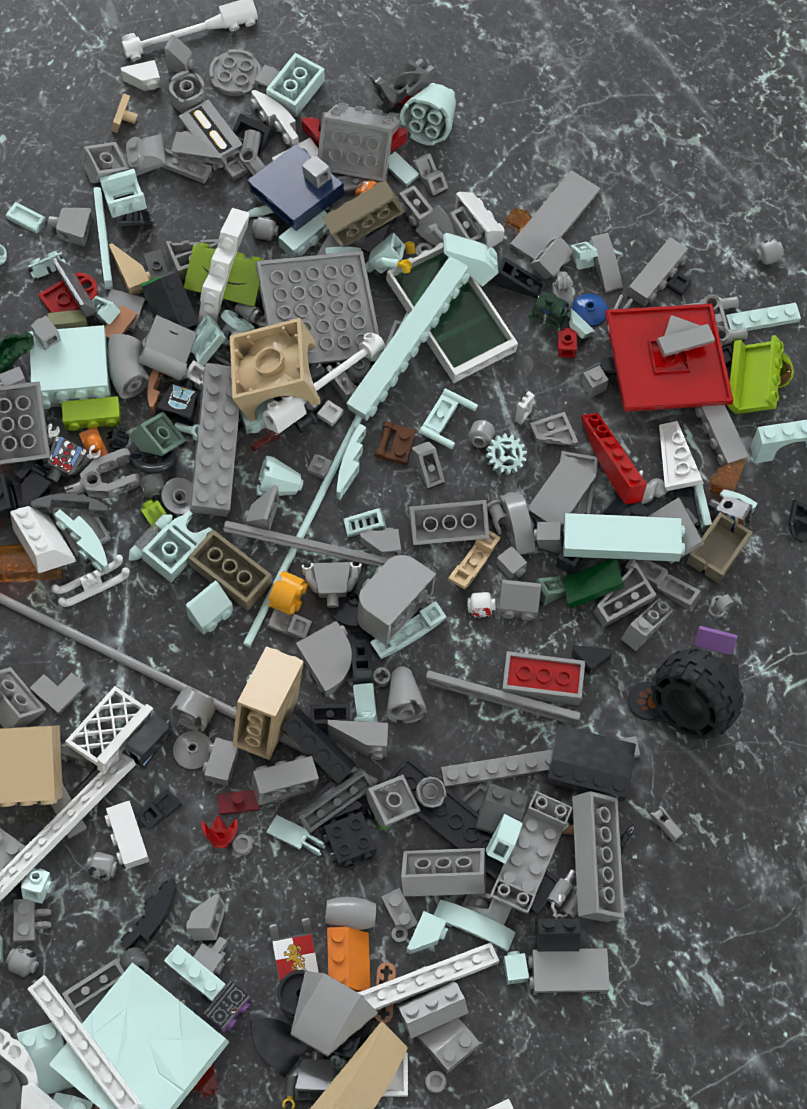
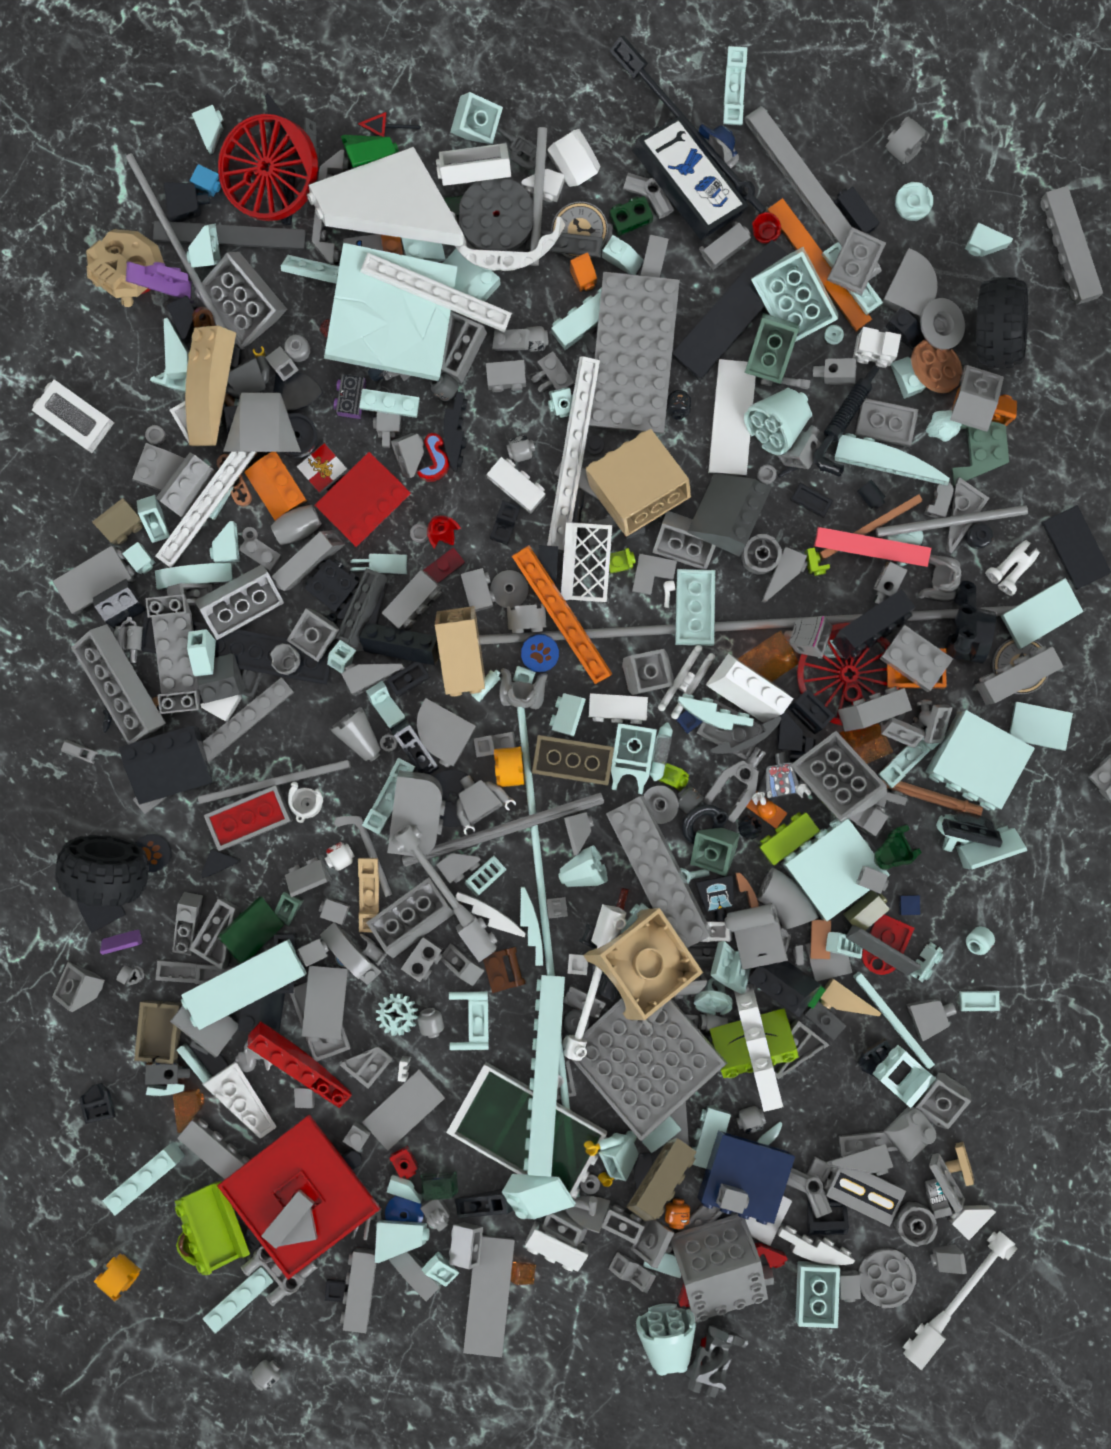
camera: 150 degrees right, 20 degrees up
(29, 313) = (909, 904): none -> dark blue tile
(38, 966) = (511, 340): none -> light grey plate
(40, 639) = (695, 607): none -> light aqua tile
(52, 671) = (668, 586): none -> white hand
(71, 942) = (506, 375): none -> light grey brick
(75, 715) = (621, 561): none -> lime bracket
(111, 550) = (688, 721): none -> dark blue tile
(119, 607) = (648, 671): none -> light grey slope
(143, 106) = (947, 1182): none -> light grey tile
(144, 324) = (798, 954): none -> light grey tile
(158, 101) = (937, 1199): none -> light grey leg
(160, 693) = (561, 614): none -> orange plate
(162, 593) = (617, 708): none -> white brick
(182, 897) = (439, 458): none -> red animal
(201, 676) = (540, 652): none -> blue tile
(226, 666) = (524, 675): none -> light aqua slope
(238, 650) = (521, 693): none -> light grey hair
(249, 1083) = (297, 348): none -> light grey head
(273, 1076) = (281, 363): none -> light grey brick
(274, 899) = (362, 499): none -> red slope
(358, 874) = (307, 559): none -> light grey slope
(377, 485) = (497, 919): none -> white slope
(379, 766) = (341, 656): none -> light aqua brick
(401, 177) = (653, 1242): none -> light grey tile
(403, 485) = (470, 928): none -> light grey bar
(447, 626) = (358, 821): none -> light grey piece
(461, 489) = (418, 956): none -> light grey brick
(482, 999) = (153, 518): none -> light aqua slope
(484, 656) = (300, 797): none -> white hair
(515, 783) = (223, 708): none -> white slope
(515, 1010) = (119, 522): none -> dark tan slope
(545, 382) = (403, 1109): none -> light grey tile
(602, 288) = (398, 1237): none -> light aqua slope
(623, 434) = (304, 1097): none -> light grey slope
(774, 623) = (77, 987): none -> light grey slope

